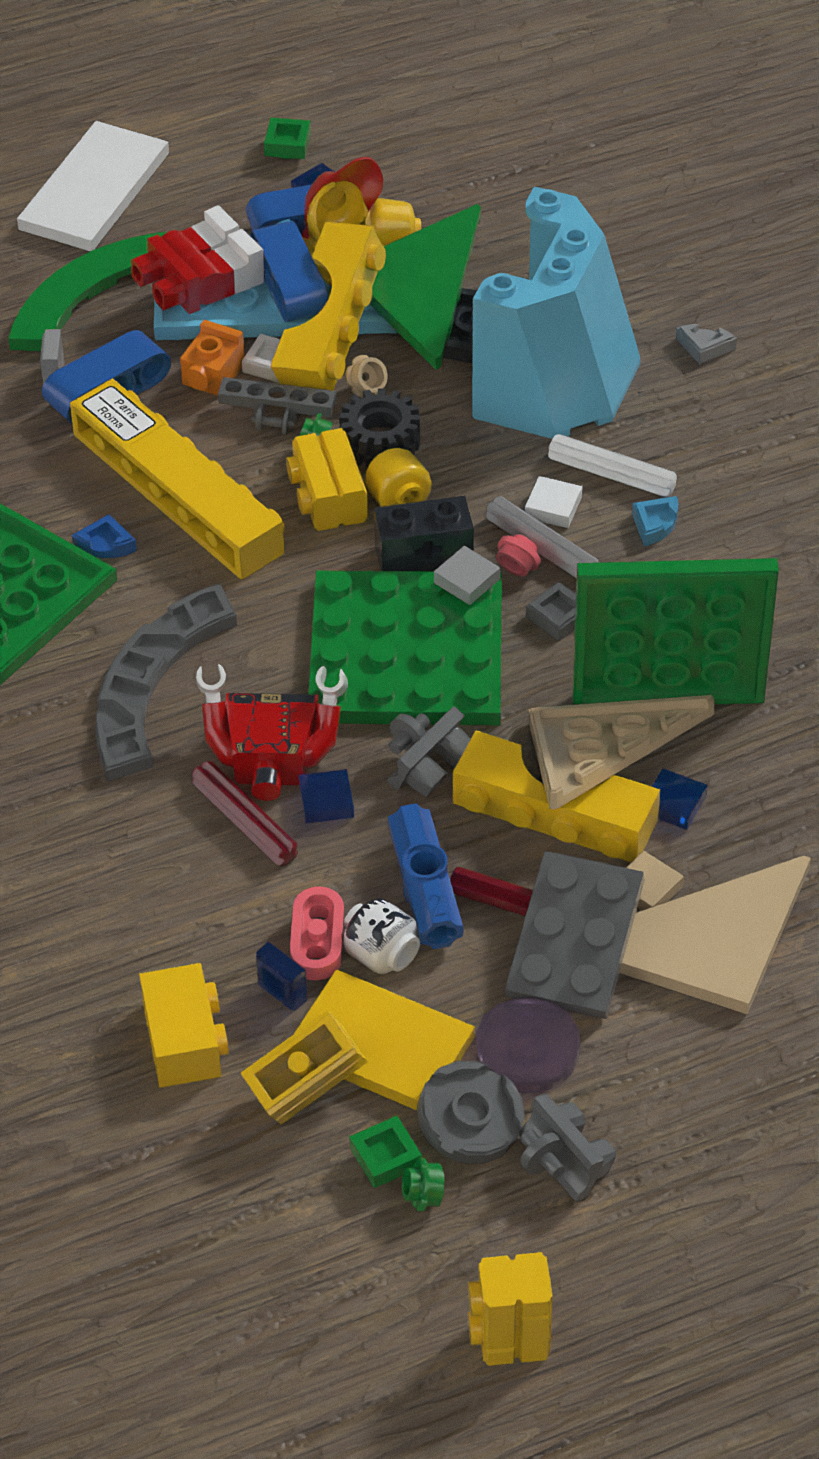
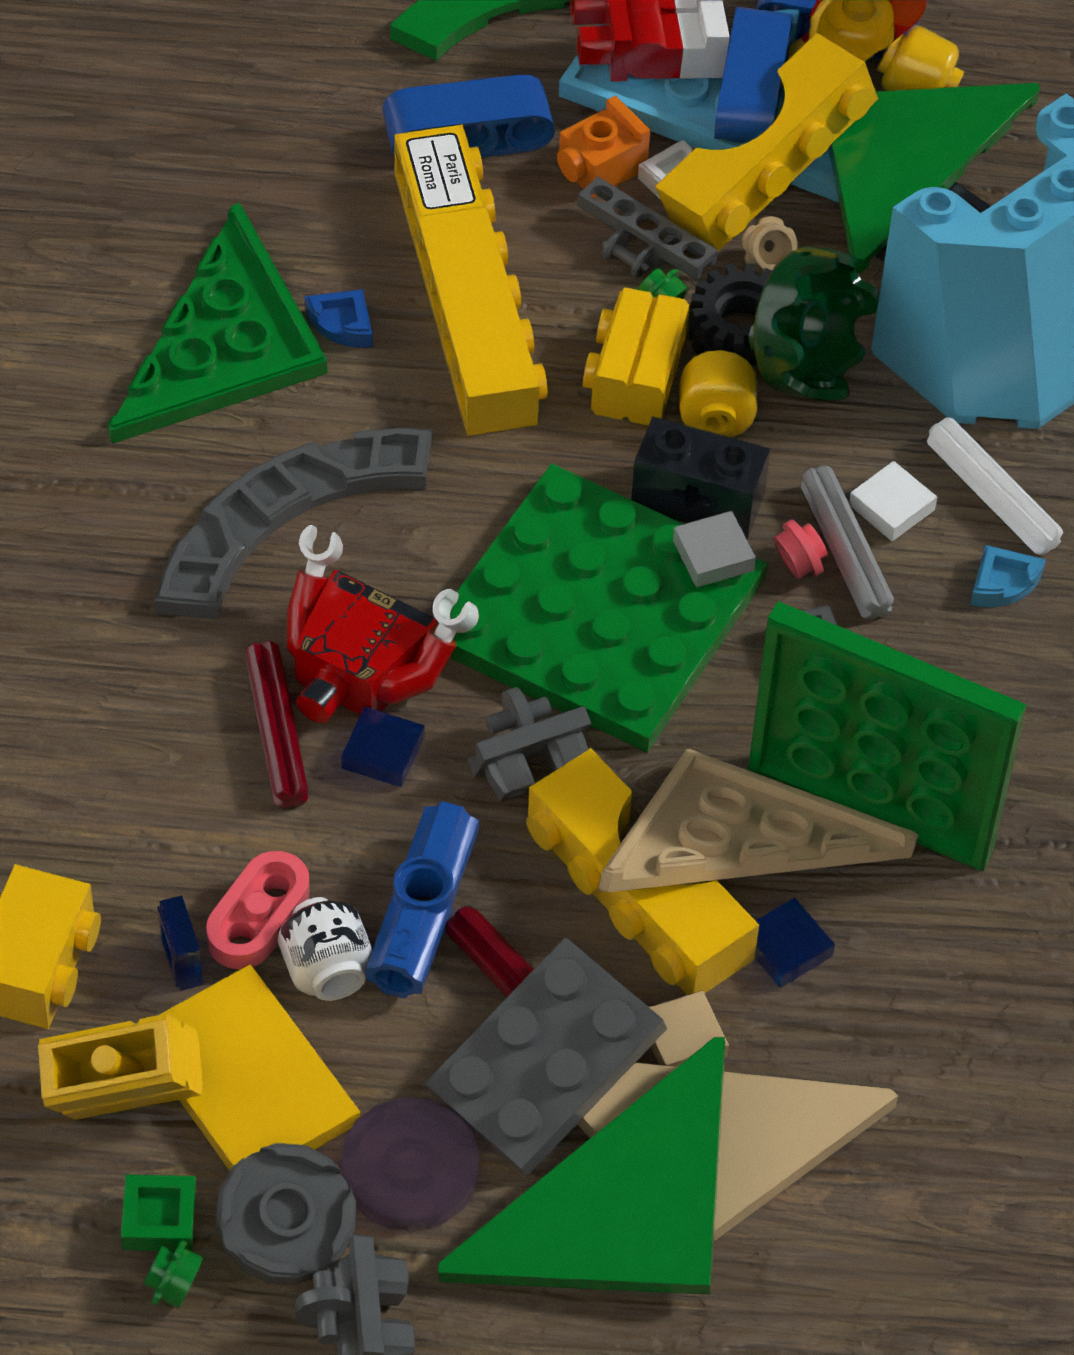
camera: 25 degrees right, 5 degrees up
(51, 352) = (422, 63): light grey tile -> none
(432, 407) = (808, 321): none -> dark green plate
(687, 1002) = (624, 1206): none -> green tile

